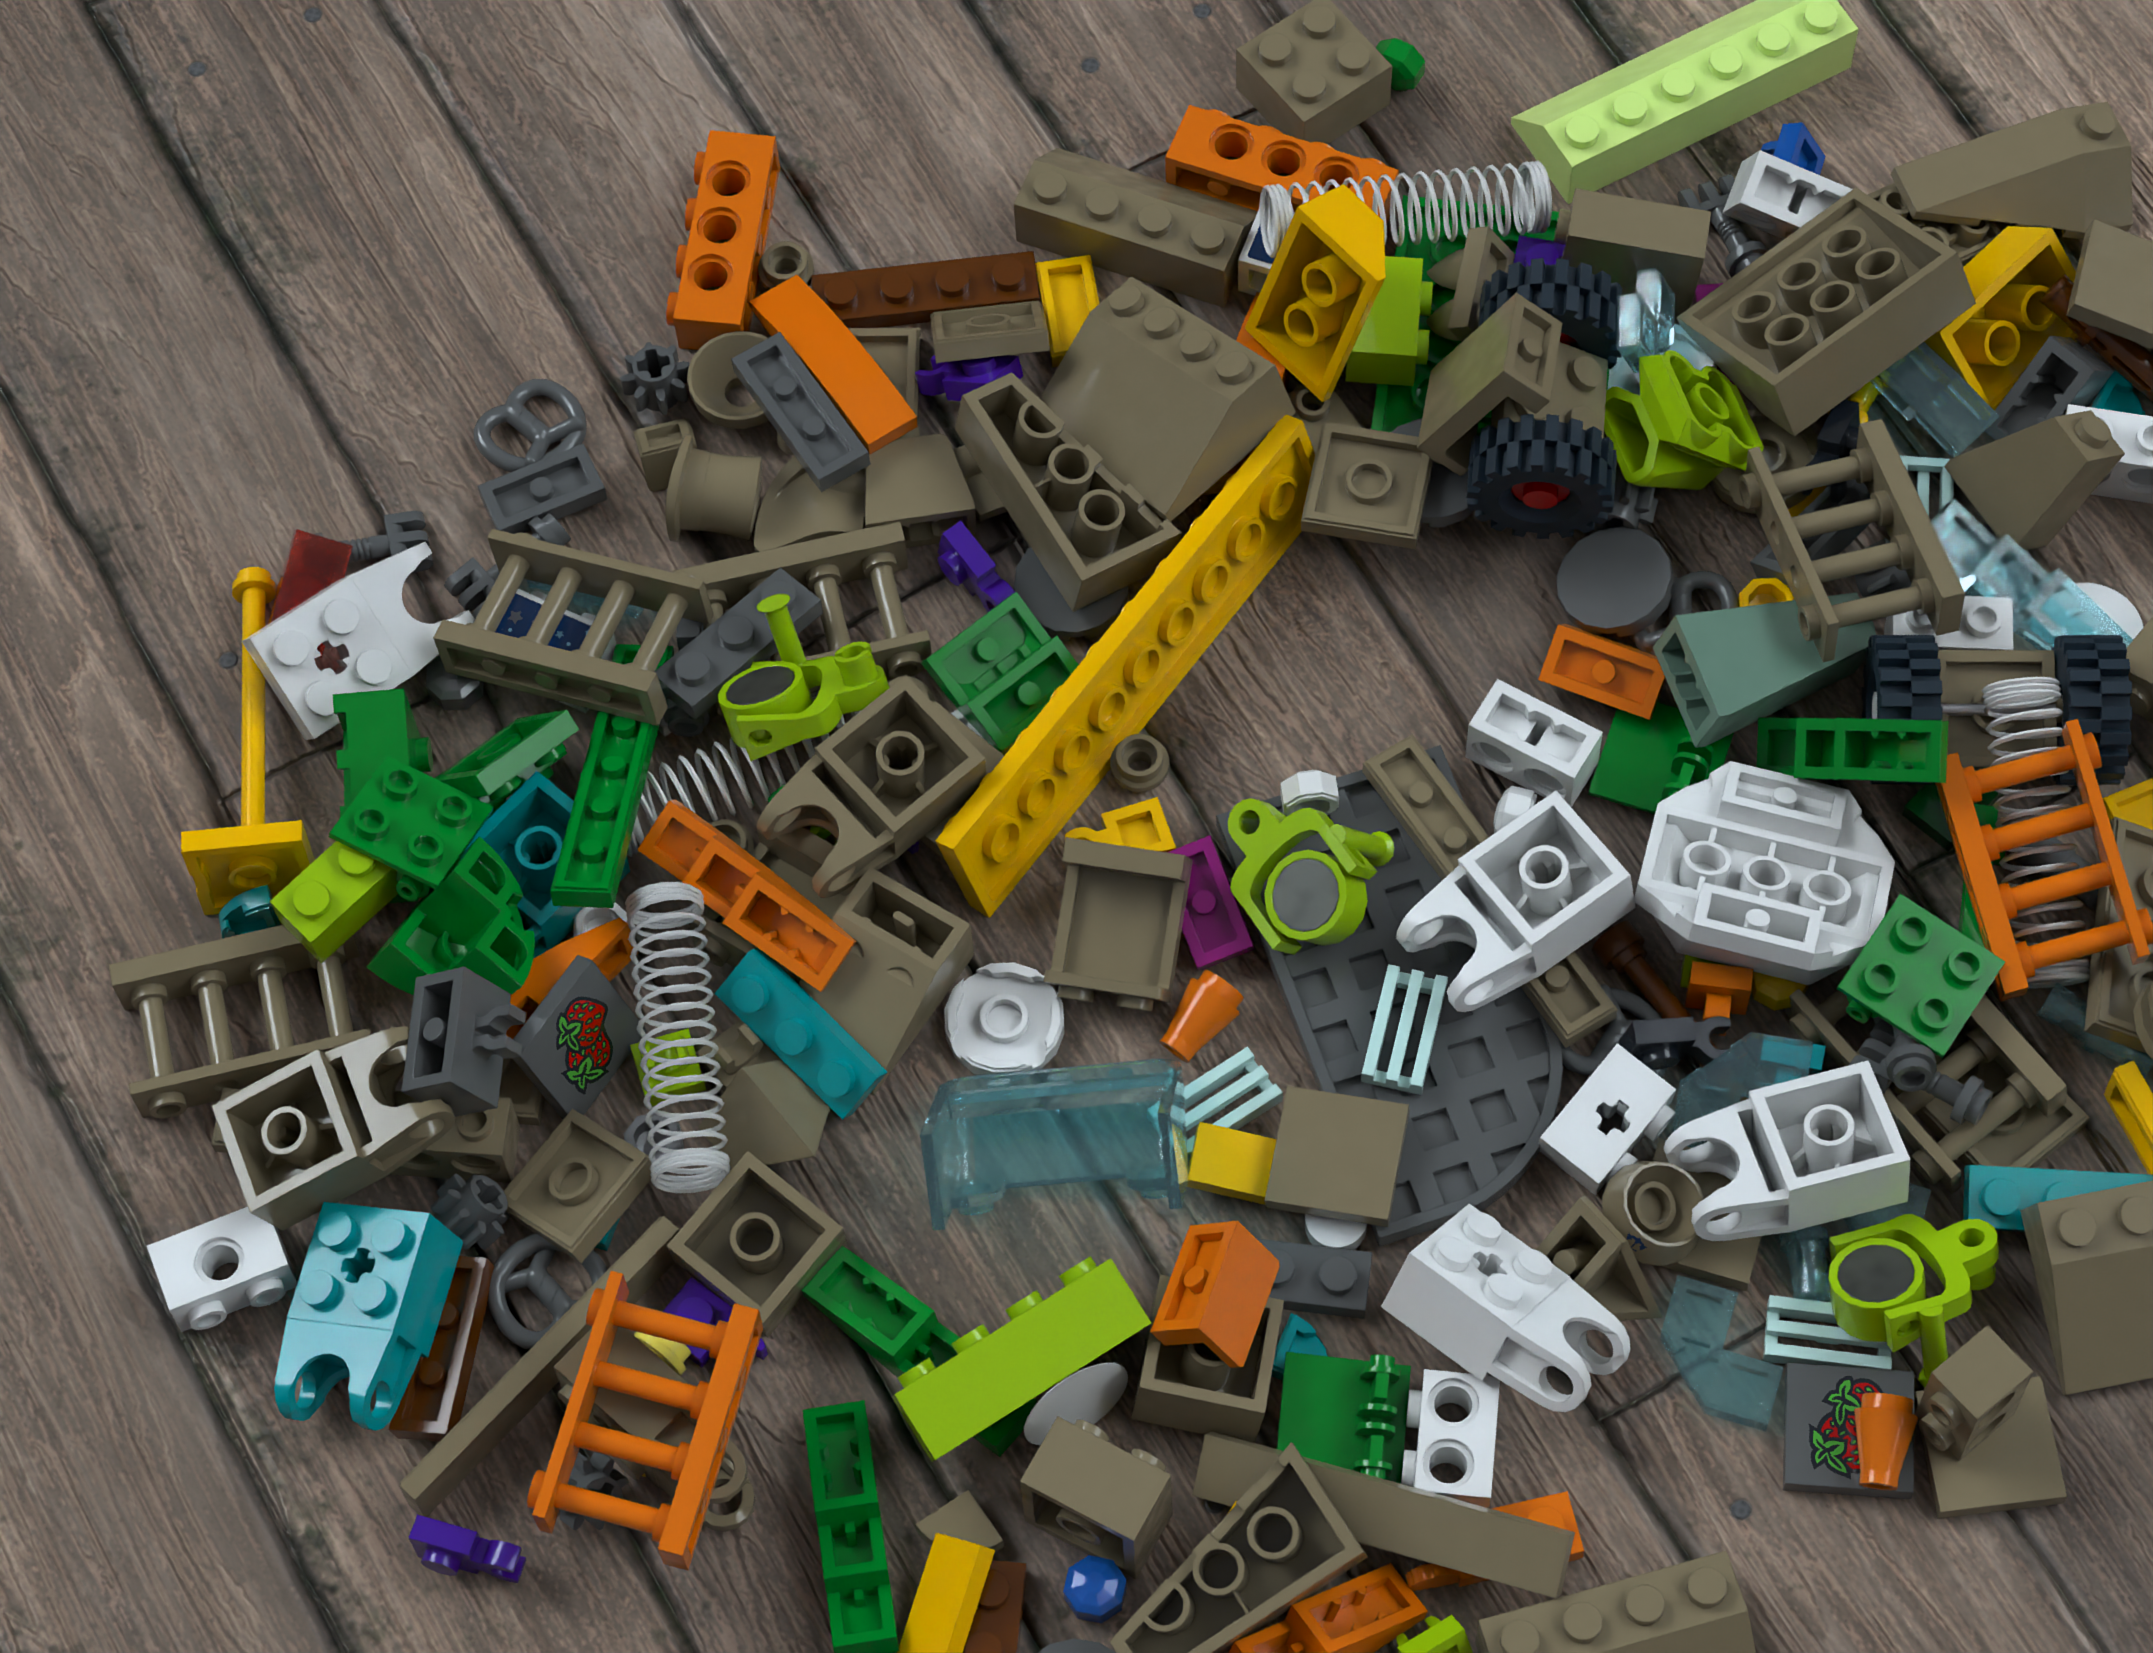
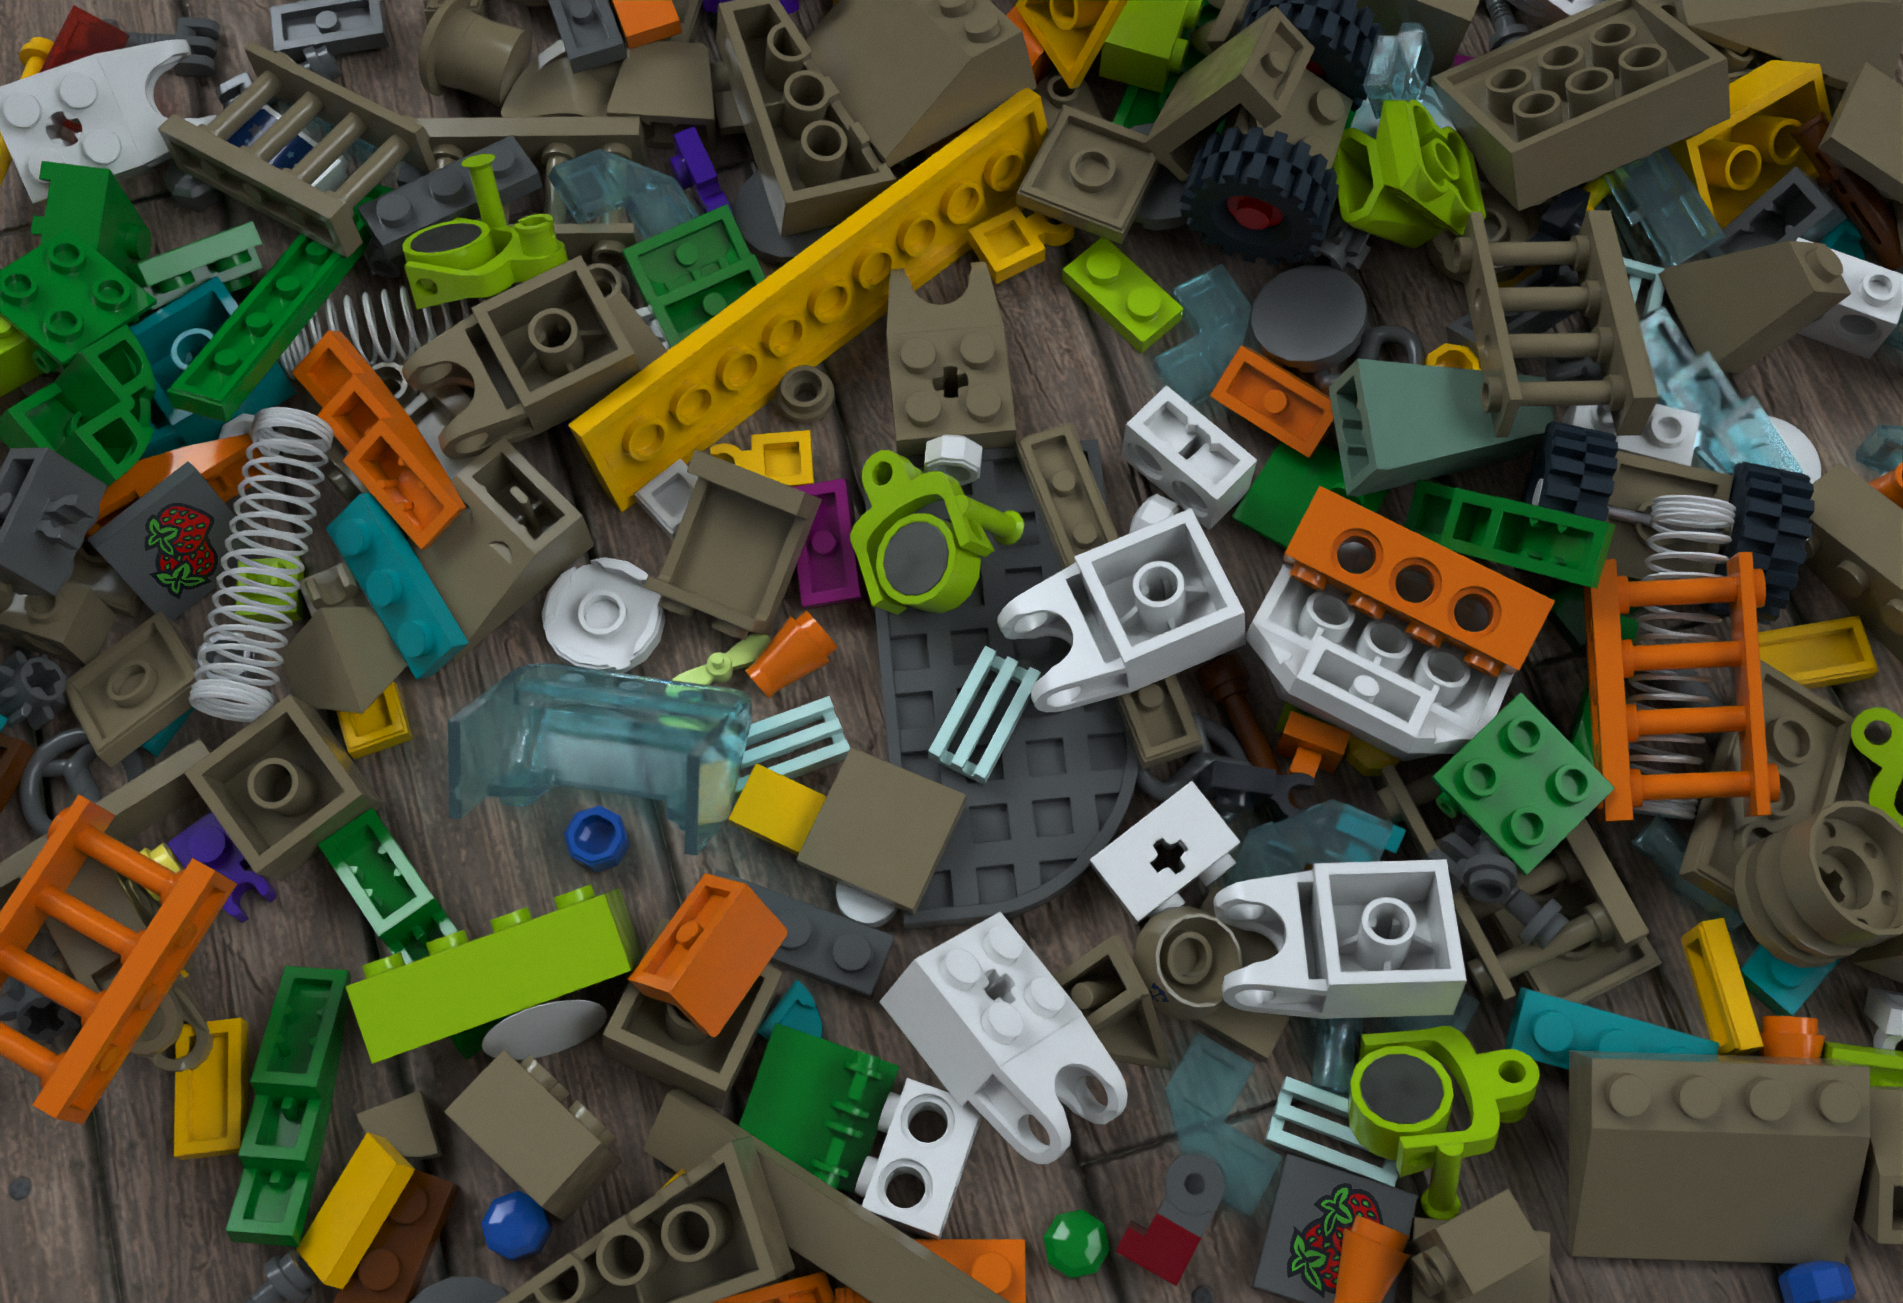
camera: 10 degrees right, 5 degrees up
(771, 1541) = (214, 1096): none -> yellow tile
(818, 1174) = (379, 727): none -> yellow tile
(888, 593) = (606, 182): none -> clear light blue tile
(1037, 893) = (667, 497): none -> white tile
(1064, 1228) = (597, 839): none -> blue tile
(1134, 1041) = (721, 665): none -> yellowish green piece
(1276, 705) = (948, 366): none -> dark tan brick
(1305, 567) = (1015, 243): none -> yellow plate
(1424, 597) = (1122, 294): none -> lime plate
(1529, 603) = (1220, 320): none -> clear light blue tile
(1614, 1487) = (1075, 1244): none -> green tile
(1710, 1413) = (1191, 1198): none -> leg
(1876, 819) = (1511, 608): none -> orange brick

